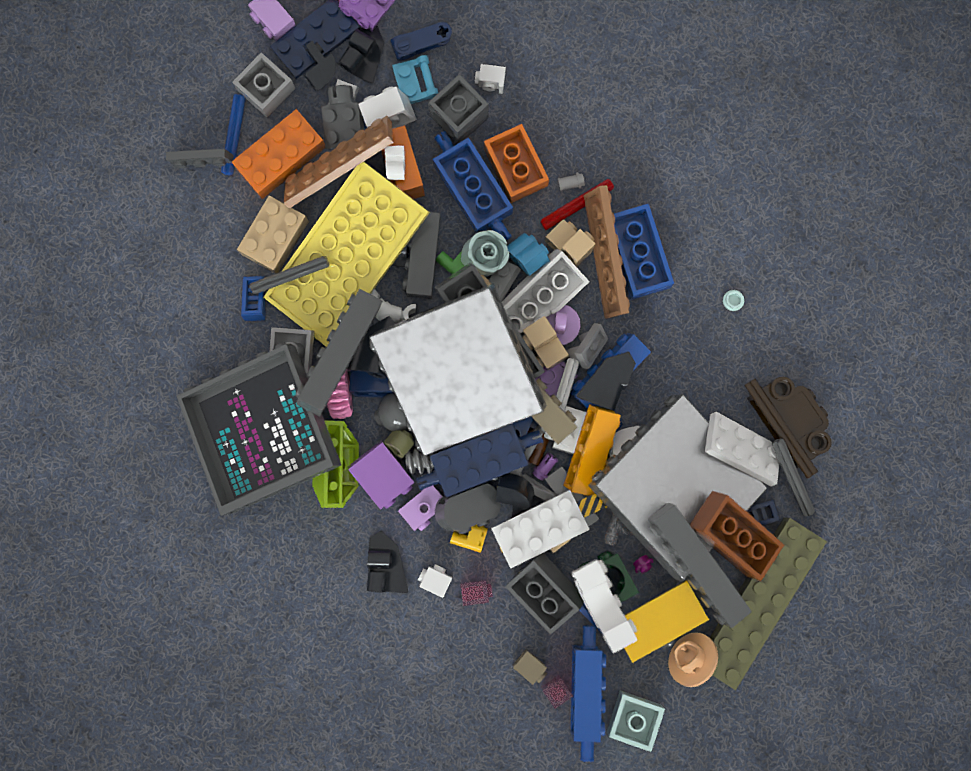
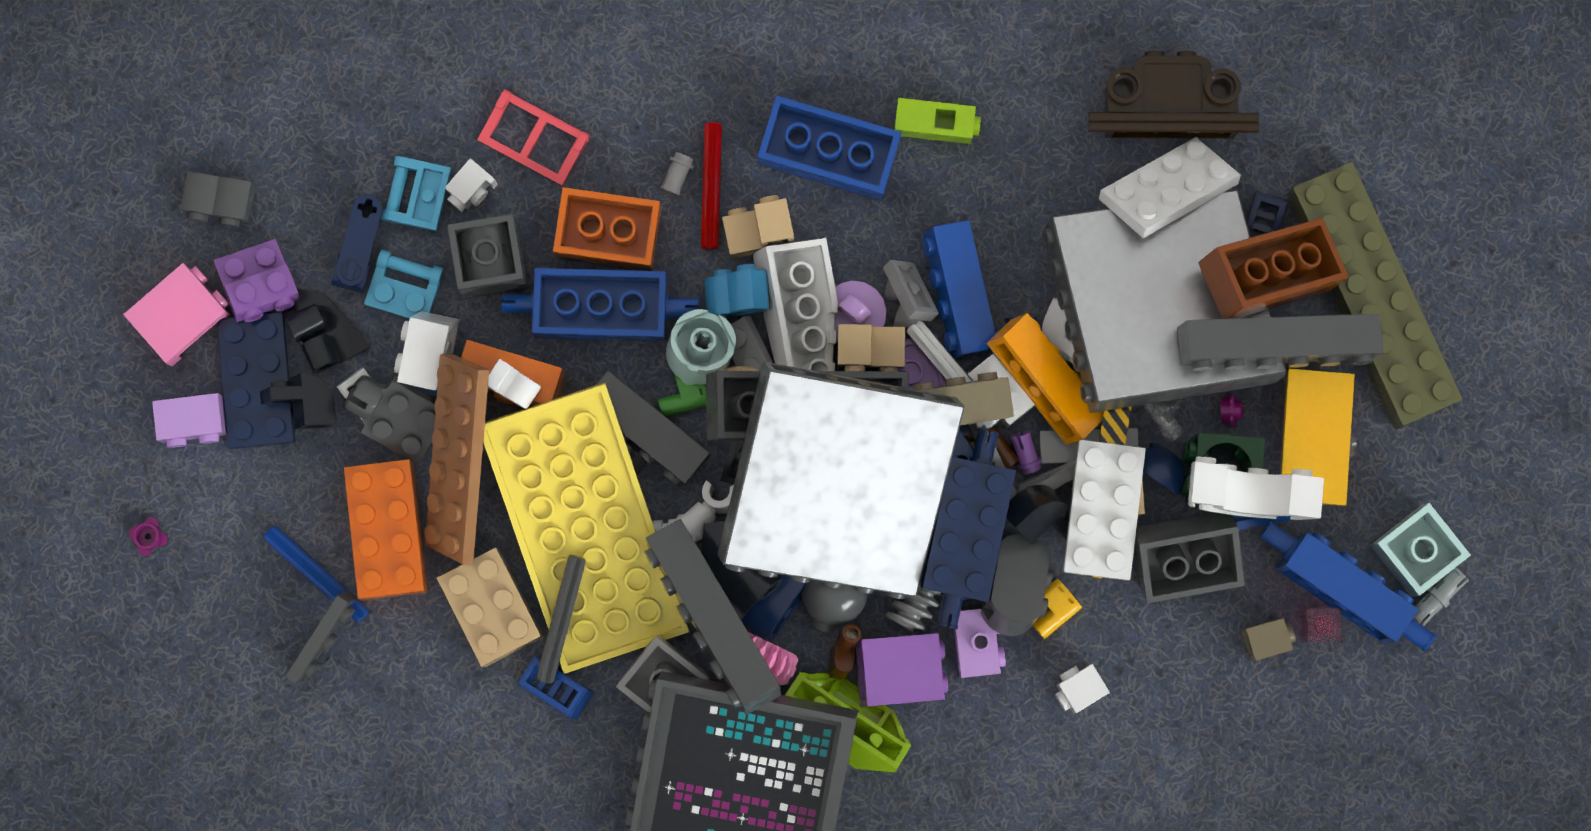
camera: 55 degrees left, 0 degrees up
(191, 34) = (138, 535): none -> magenta plate
(264, 84) = (279, 489): light grey brick -> none
(370, 438) = (843, 652): none -> reddish brown piece
(385, 566) = (1019, 742): black panel -> none
(399, 442) = (876, 618): olive plate -> none
(469, 60) = (426, 196): none -> medium azure plate
(475, 592) = (1129, 646): clear pink brick -> none
(539, 95) = (507, 97): none -> coral window
(586, 547) = (1164, 467): none -> dark blue brick
(606, 252) = (805, 192): medium nougat plate -> none
(608, 381) = (973, 299): black panel -> none
(617, 748) = (1439, 596): none -> light grey pin
(693, 300) = (936, 121): none -> lime brick
(693, 659) = (1391, 427): light nougat piece -> none
(733, 300) = (969, 70): light aqua plate -> none
(793, 477) = (1245, 148): dark grey axle -> none

